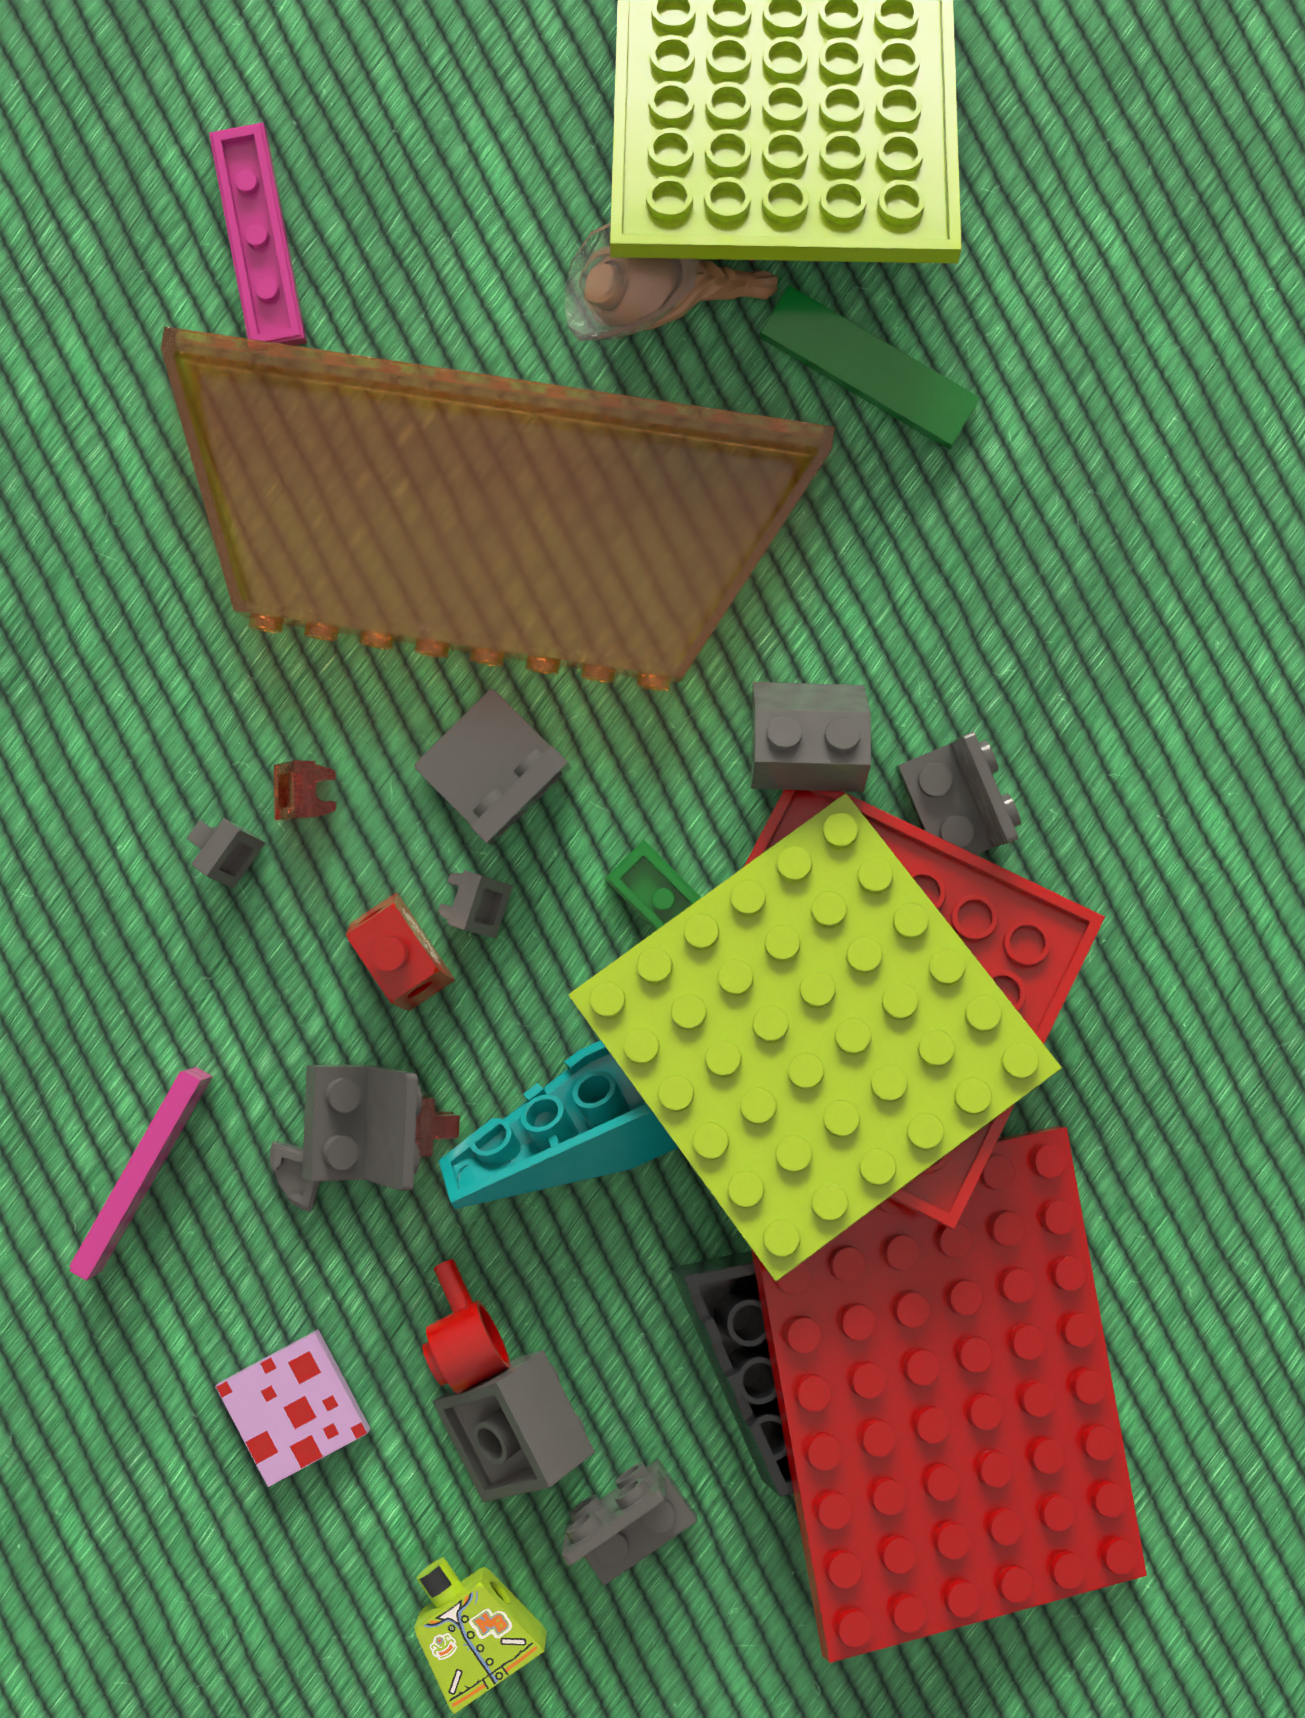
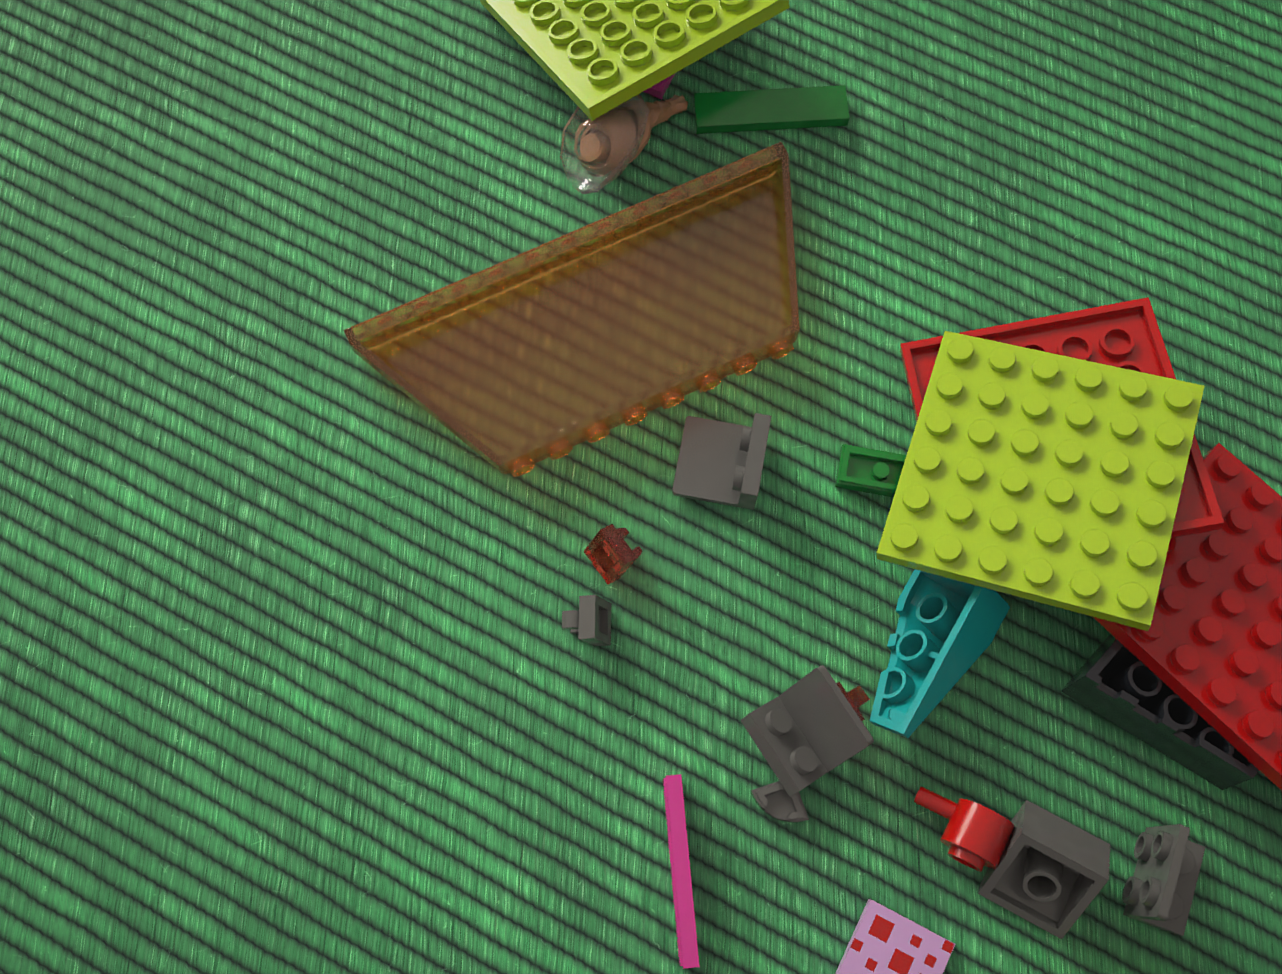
camera: 40 degrees left, 15 degrees down
(257, 235) = (360, 253): dark pink tile -> none
(398, 954) = (747, 607): red torso -> none
(478, 903) = (773, 546): dark grey tile -> none
(810, 737) = (899, 317): dark grey slope -> none
(958, 795) = (1010, 288): dark grey bracket -> none

